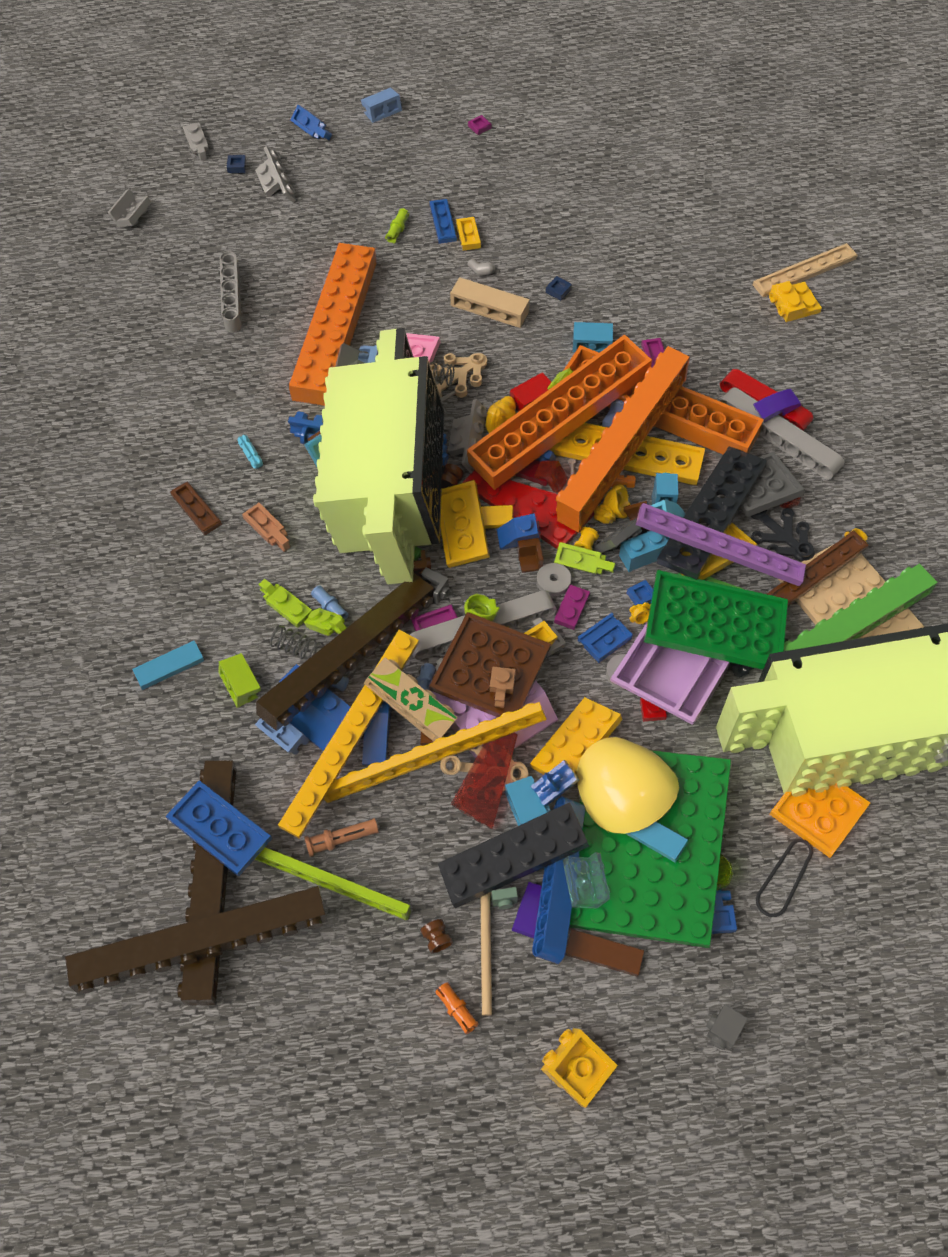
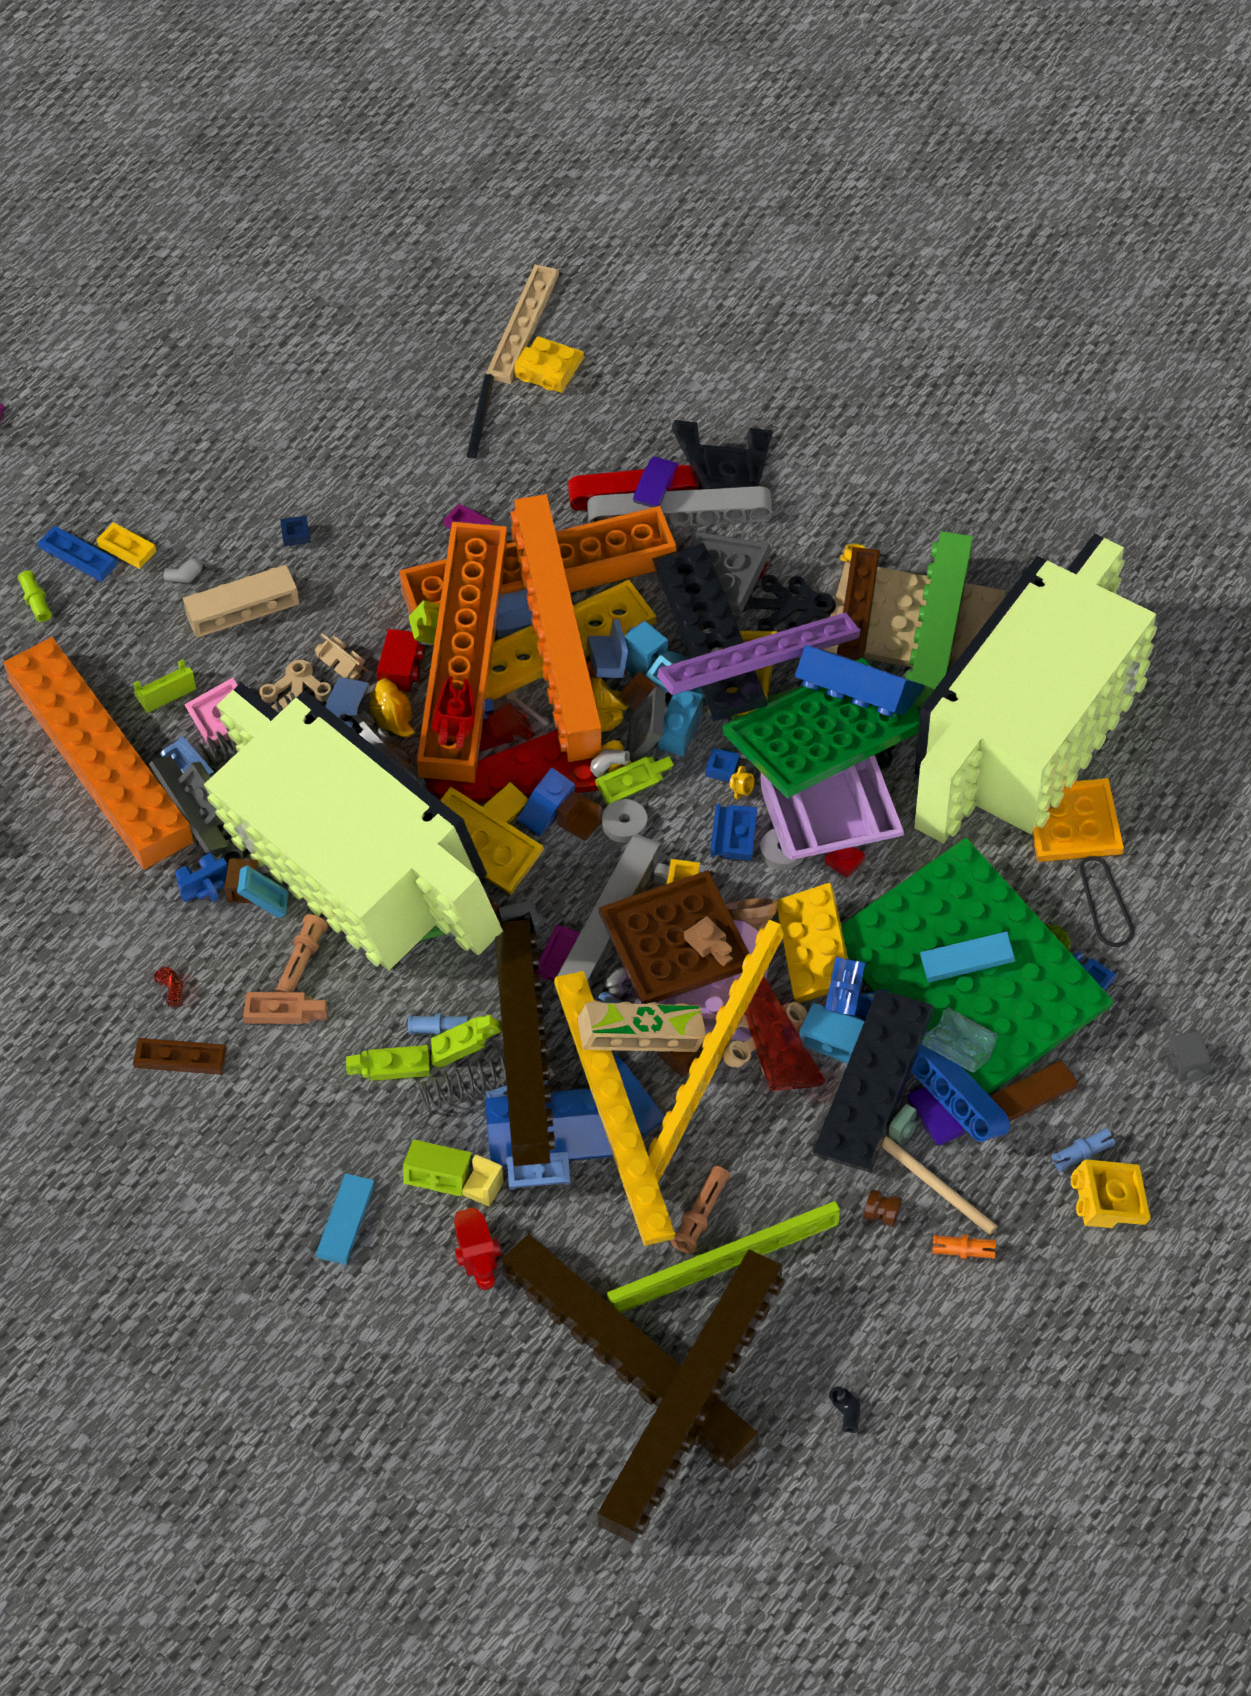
camera: 45 degrees left, 5 degrees down
(204, 741) = (476, 1247): none -> red hinge
(219, 828) = (593, 1294): blue plate -> none
(234, 470) = (168, 977): none -> clear red arm
(247, 711) = (484, 1181): none -> light yellow panel
(250, 451) = (168, 954): medium azure axle -> none
(285, 1035) = (848, 1406): none -> black arm
(296, 511) = (304, 947): none -> nougat pin
(403, 318) = (165, 688): none -> lime hinge
(476, 390) = (346, 697): none -> medium blue hinge
(481, 606) = (601, 894): lime hair -> none
(506, 365) = (333, 650): none -> tan hinge
(507, 437) = (454, 714): none -> red hinge
(560, 691) = (753, 911): none -> medium nougat piece
(572, 607) = (671, 831): magenta plate -> none
(576, 535) = (605, 758): none -> light grey arm
(592, 335) = (392, 553): dark azure brick -> none
(594, 1020) = (1083, 1149): none -> medium blue pin
(625, 785) = (905, 937): light yellow piece -> none
(641, 478) = (608, 652): none -> medium blue panel
(724, 302) = (480, 416): none -> black bar
(763, 609) = (857, 680): none -> blue slope
(832, 428) = (723, 466): none -> black wing

